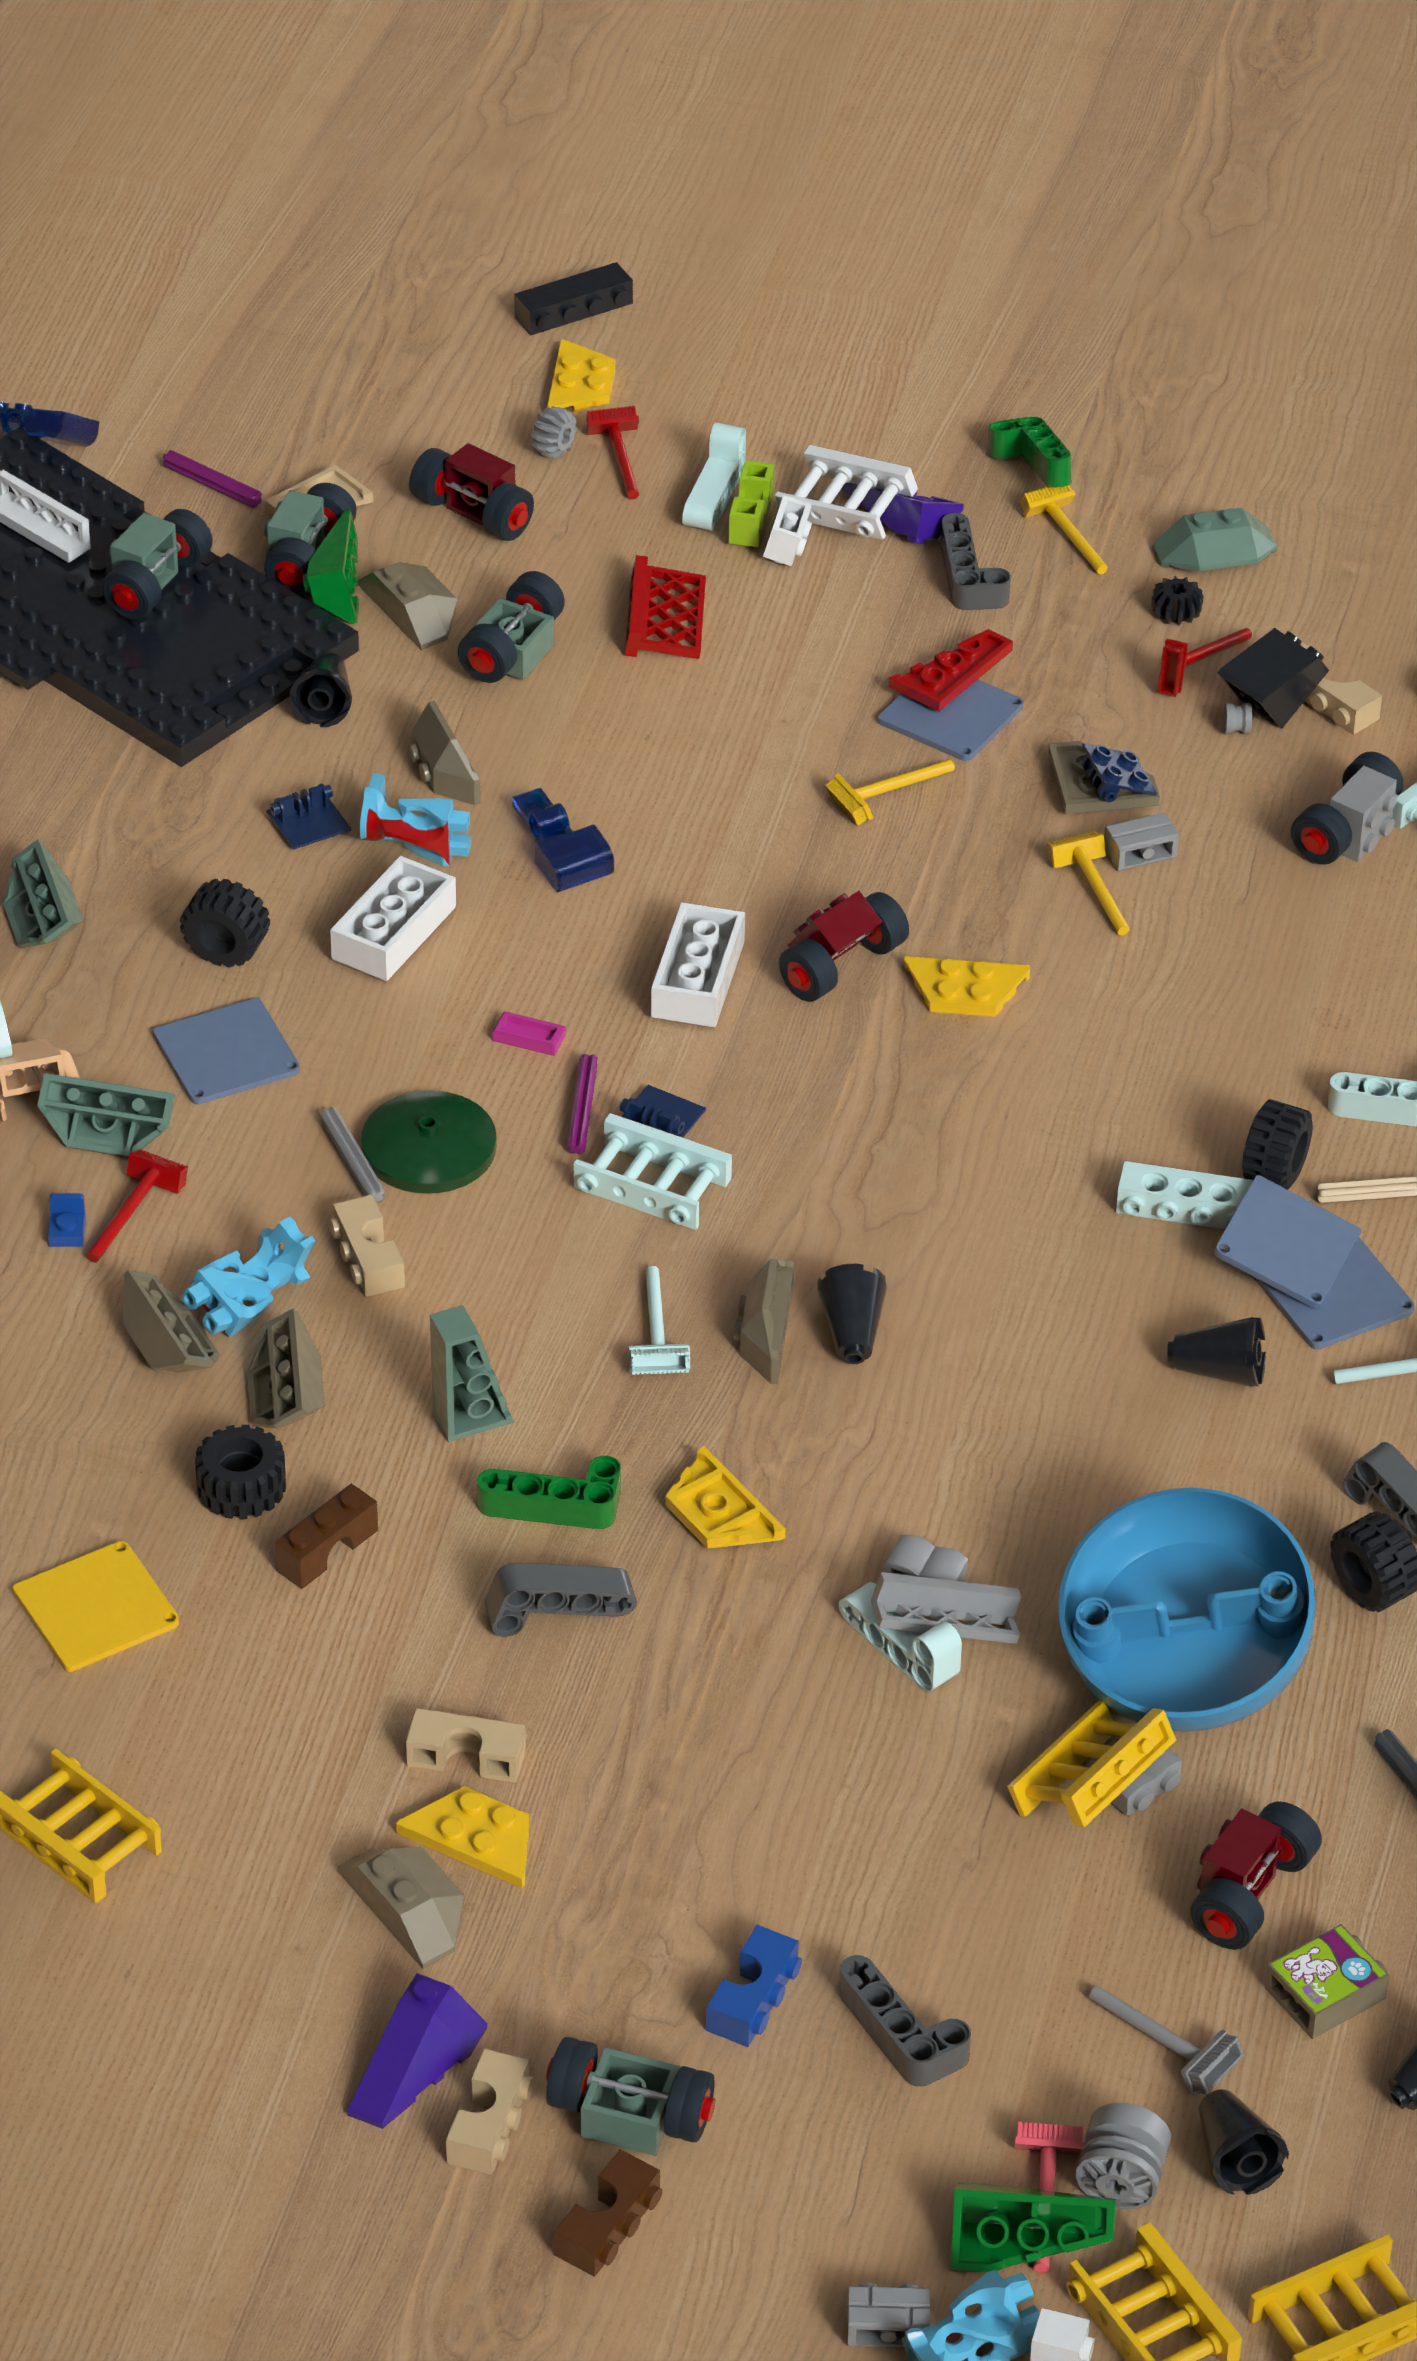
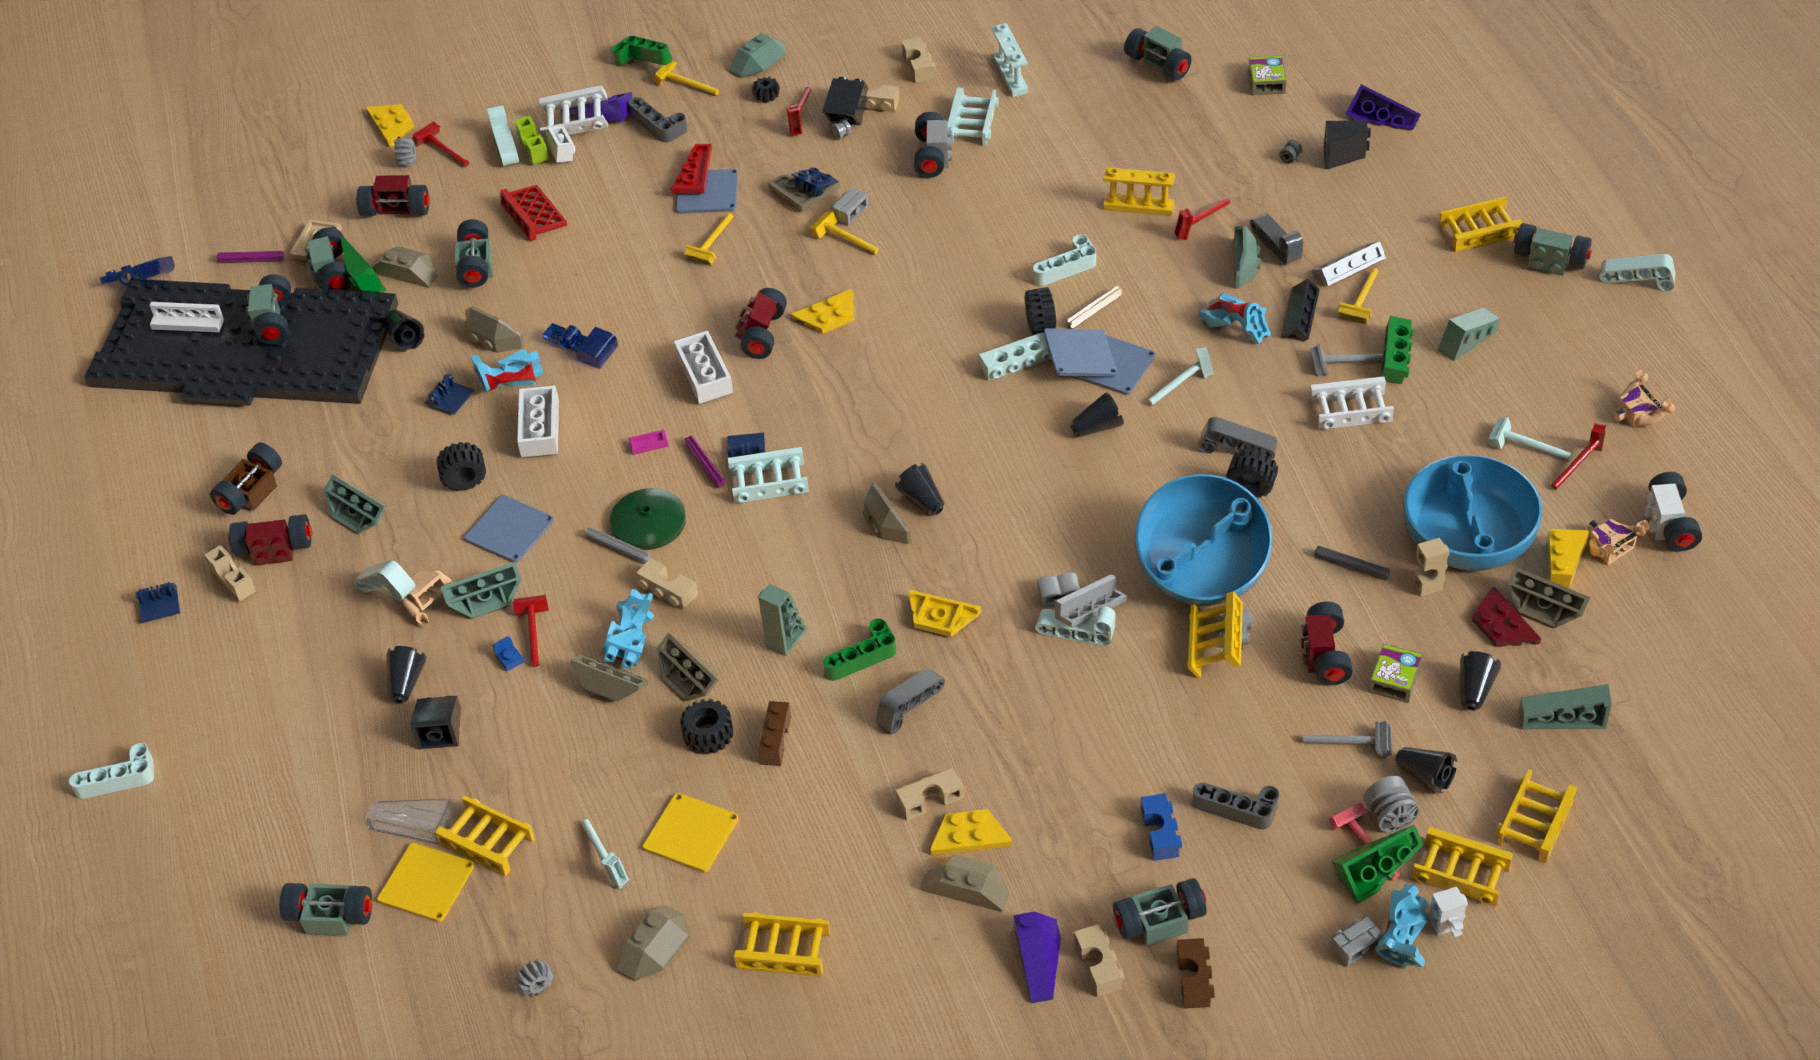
camera: 30 degrees left, 5 degrees up
(573, 298) = (355, 85): black brick -> none
(657, 1356) = (847, 561): light aqua piece -> none

